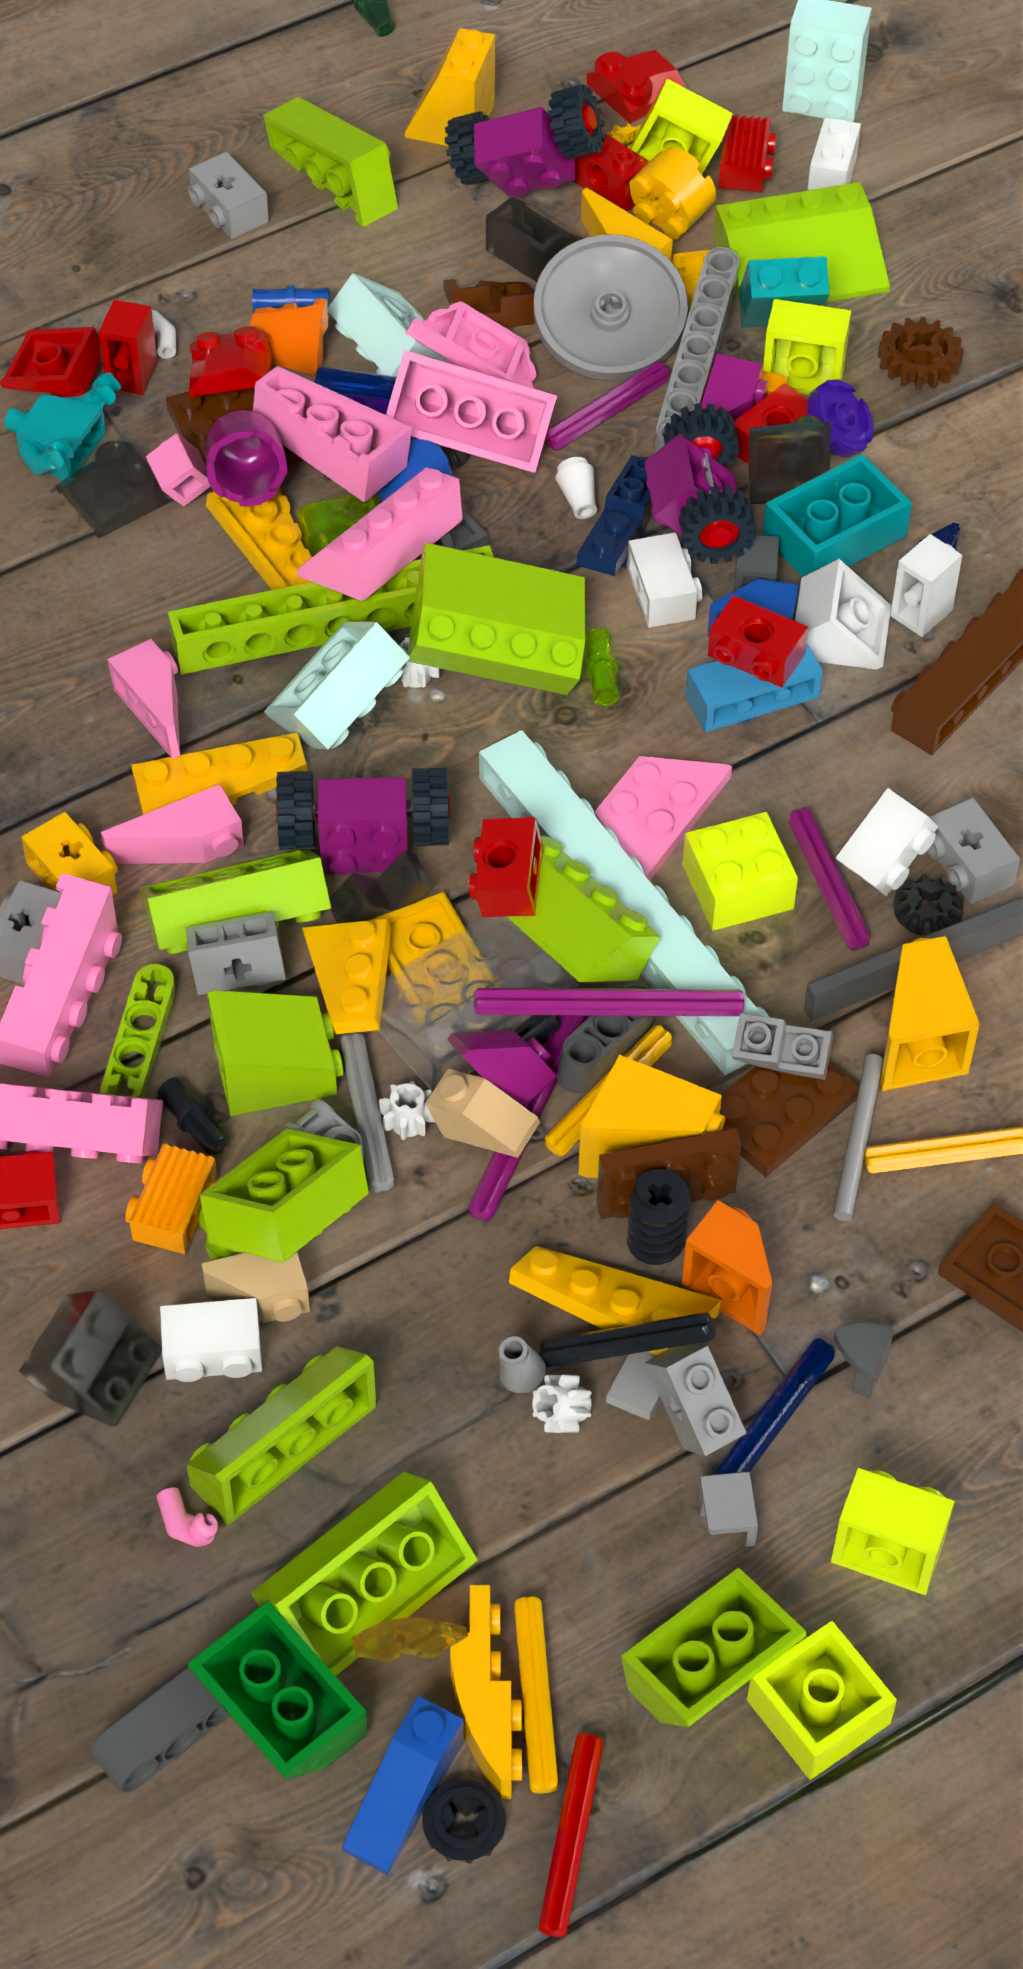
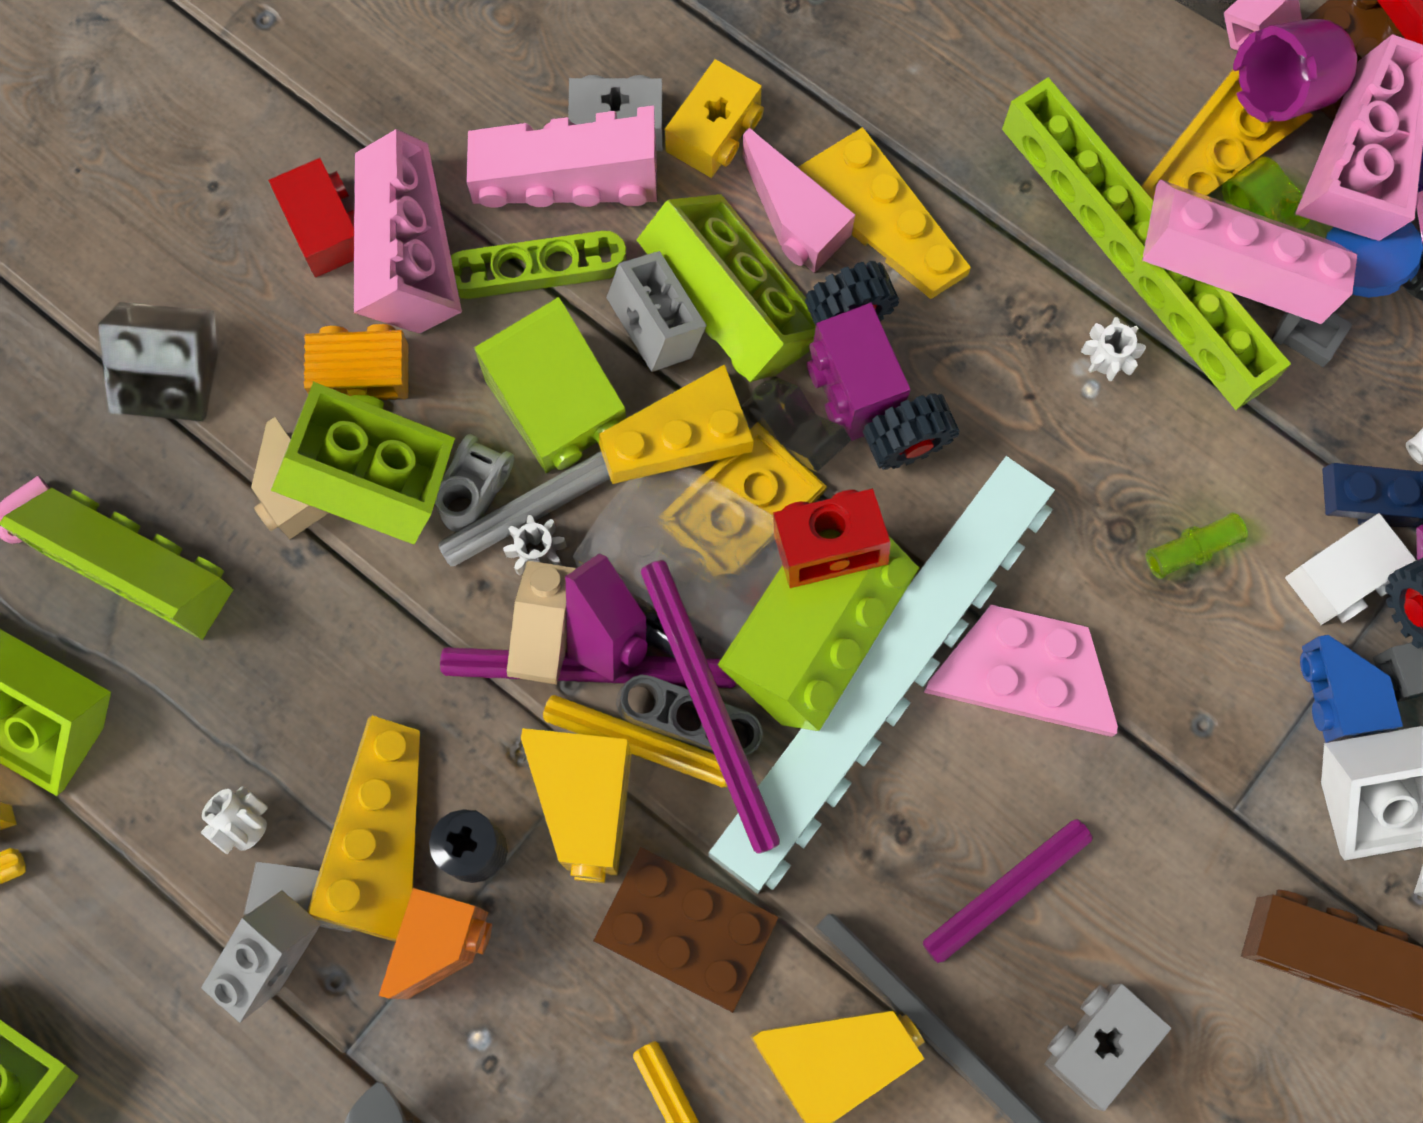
camera: 70 degrees right, 20 degrees up
(148, 687) = (954, 110): bright pink slope -> none
(192, 1116) = (461, 348): black axle -> none
(211, 1339) = (210, 459): white brick -> none
(339, 684) = (1038, 282): light aqua slope -> none
(498, 620) = (1196, 409): lime slope -> none
(520, 1366) = (265, 762): light grey cone -> none
(628, 1339) = (305, 867): black axle -> none
(703, 1161) = (524, 840): reddish brown plate -> none
(727, 695) = (1246, 720): dark azure brick -> none
(729, 1505) = (160, 1029): light grey panel -> none
(739, 871) = (968, 787): neon yellow brick -> none
(757, 641) = (1300, 683): red brick -> none
(778, 1409) = (300, 1043): clear blue axle -> none
(782, 1047) = (736, 911): light grey slope -> none
(858, 1137) = (669, 1029): light grey bar -> none
(888, 842) = (1065, 945): white brick -> none
(927, 920) = (991, 1022): pearl dark grey gear -> none

